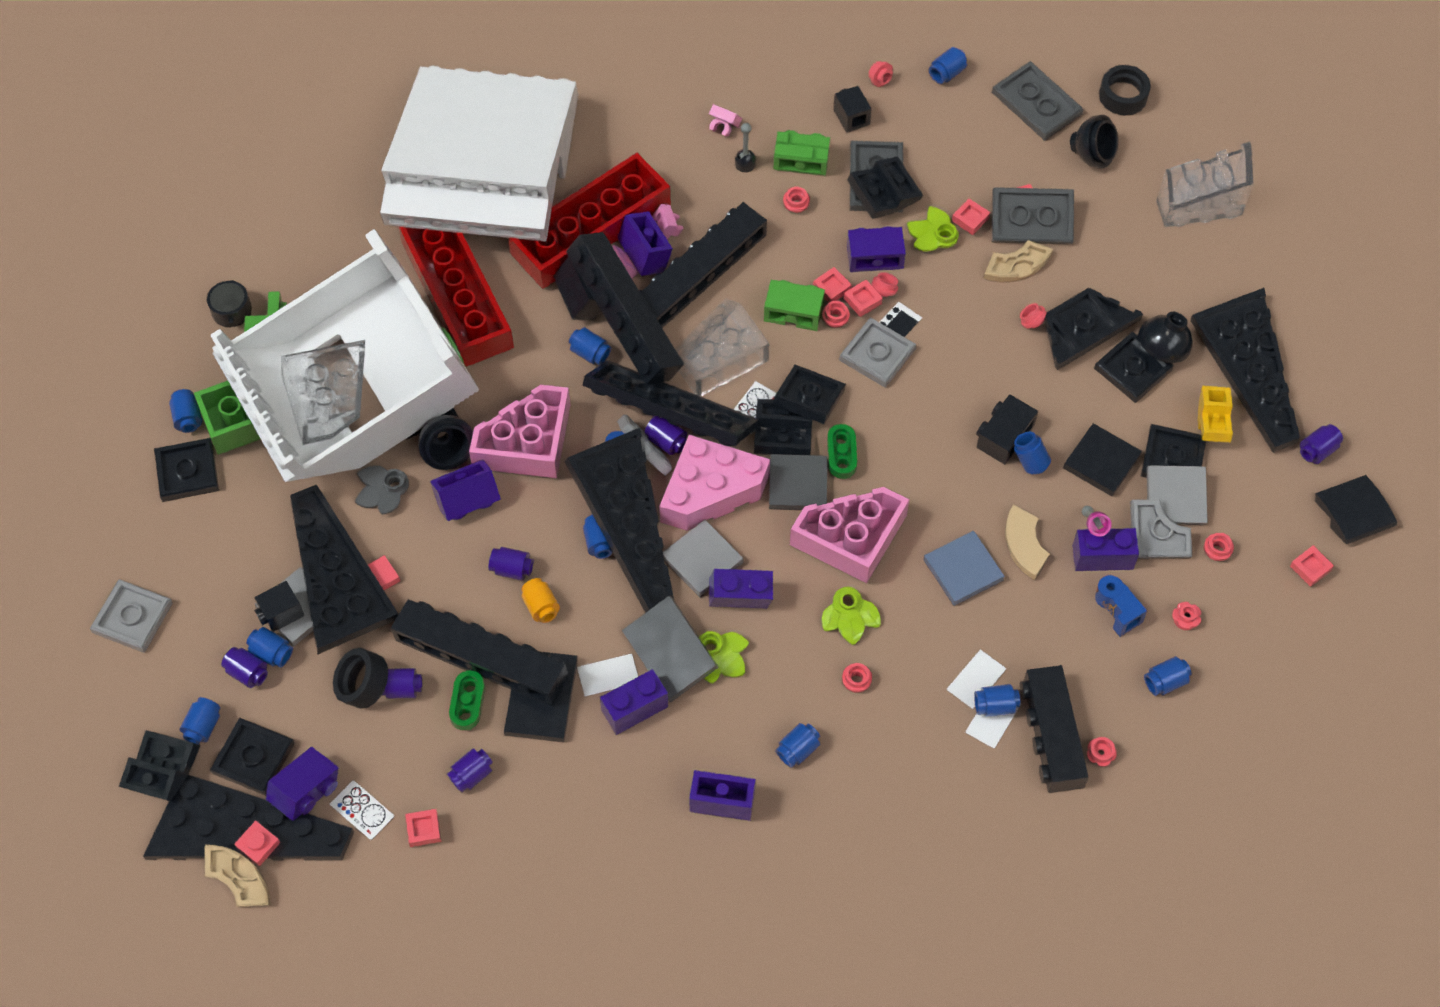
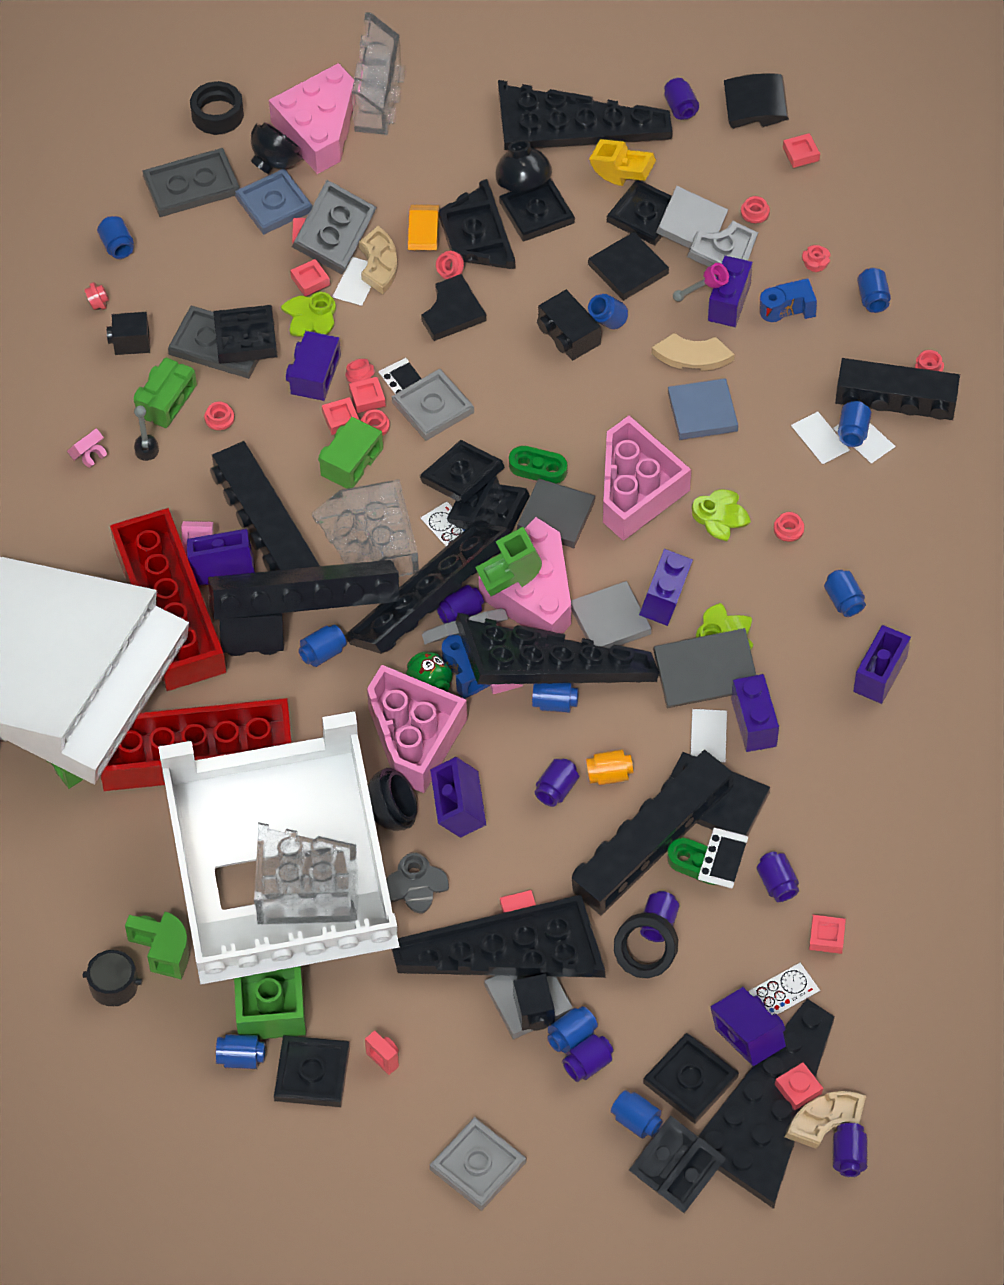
camera: 70 degrees left, 5 degrees down
(207, 904) = (850, 1149): none -> dark purple brick
(210, 511) = (382, 1051): none -> coral plate
(472, 717) = (723, 858): none -> black sticker
(584, 431) = (430, 669): none -> green head
(695, 446) = (515, 564): none -> bright green brick
(980, 253) = (351, 286): none -> white sticker
(988, 336) = (453, 310): none -> black tile
(1045, 164) = (273, 201): none -> sand blue tile
(1062, 281) = (423, 227): none -> light orange slope
(1141, 162) = (316, 116): none -> bright pink brick

